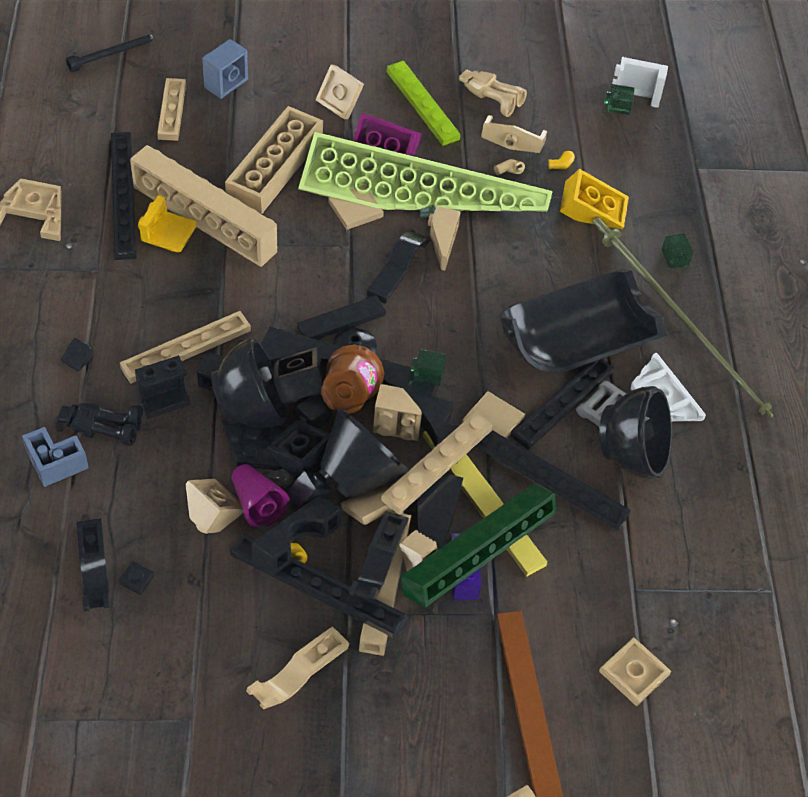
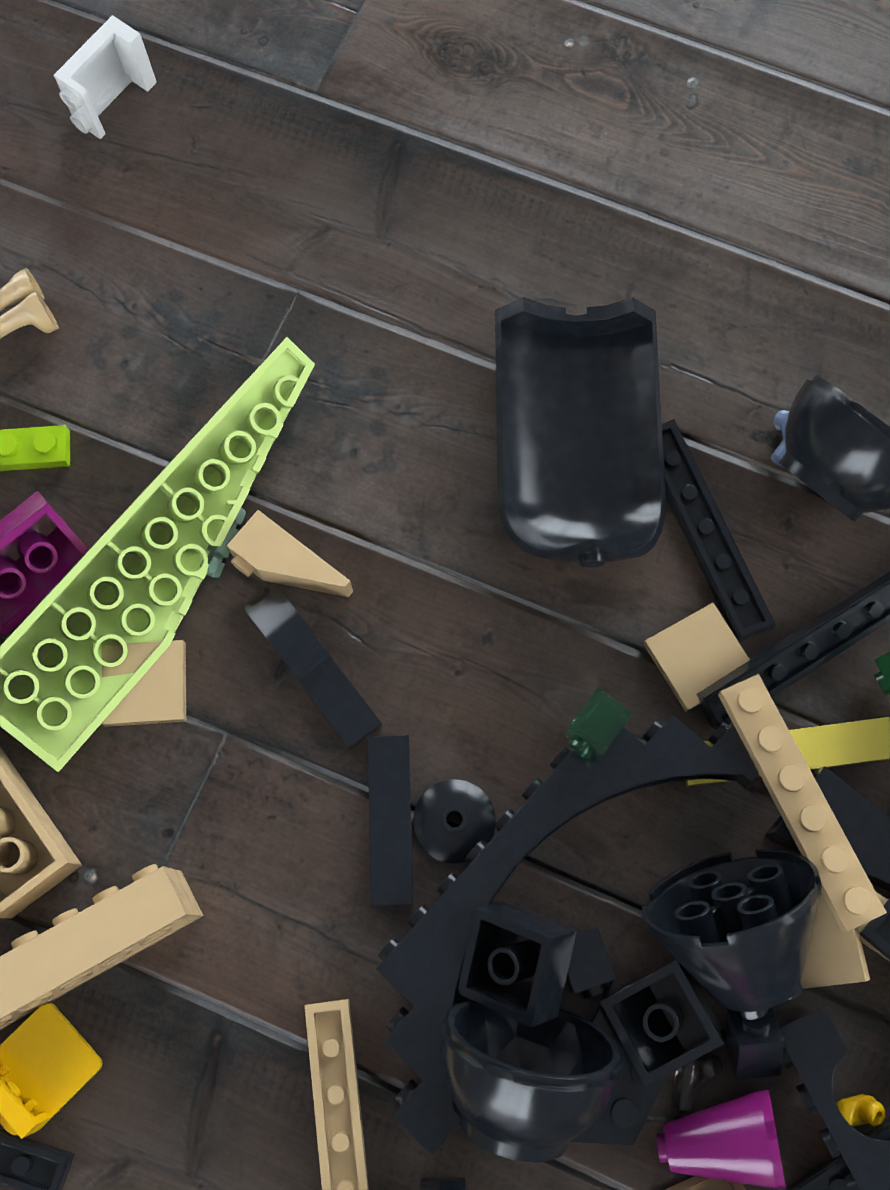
camera: 60 degrees left, 20 degrees up
(351, 378) = (576, 878): dark orange piece -> none
(396, 414) = (653, 821): tan slope -> none
(510, 166) = (178, 375): tan arm -> none
(512, 137) = (119, 342): tan piece -> none
(563, 162) = (210, 285): yellow arm -> none
(590, 198) = (323, 283): yellow slope -> none
(605, 388) = (754, 463): light grey plate -> none
(612, 238) = (415, 291): olive piece -> none
(620, 99) = (118, 128): clear green brick -> none
(677, 251) = (485, 208): clear green brick -> none
(680, 401) = (748, 371): white wing -> none

